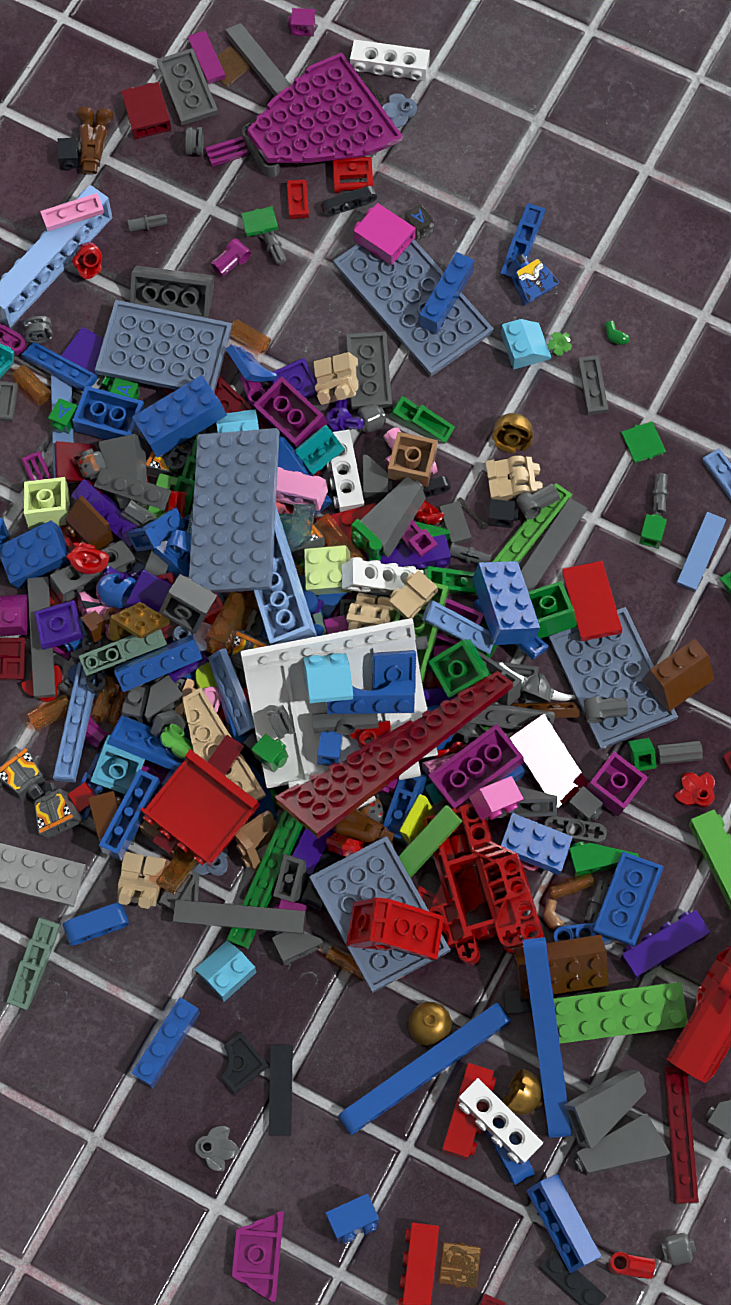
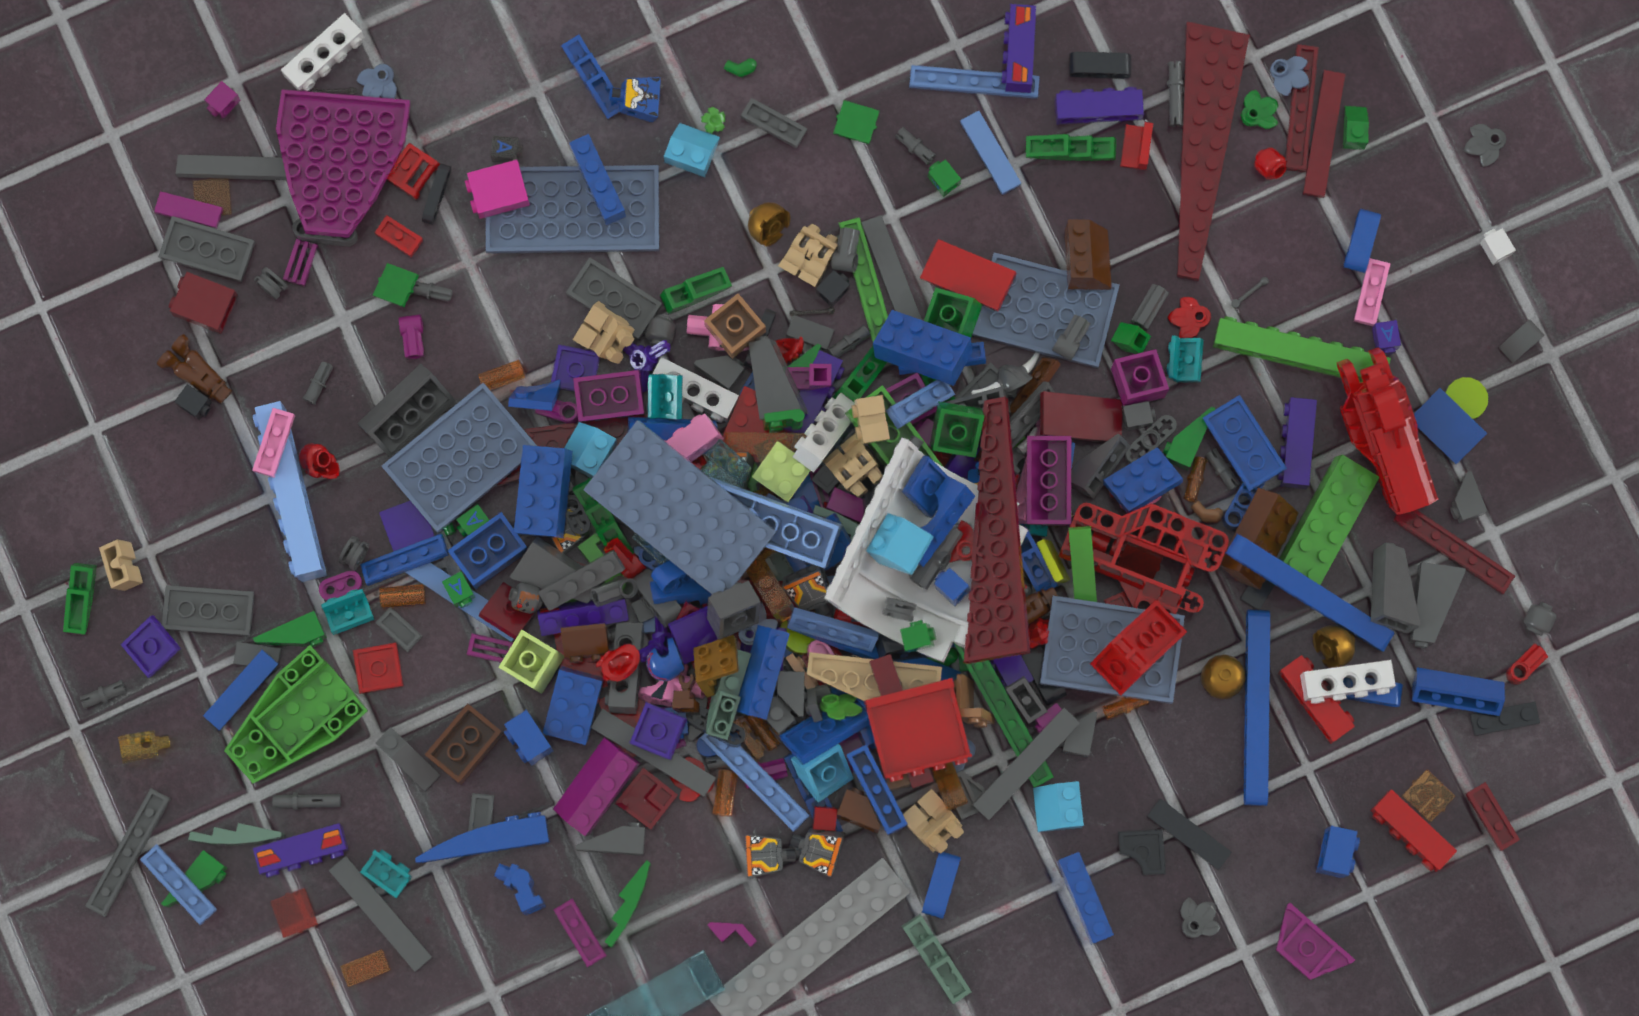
camera: 55 degrees left, 10 degrees up
(157, 530) = (639, 596): blue bracket -> none
(496, 798) = (1090, 484): brick -> none
(660, 808) = (1185, 359): none -> teal bracket

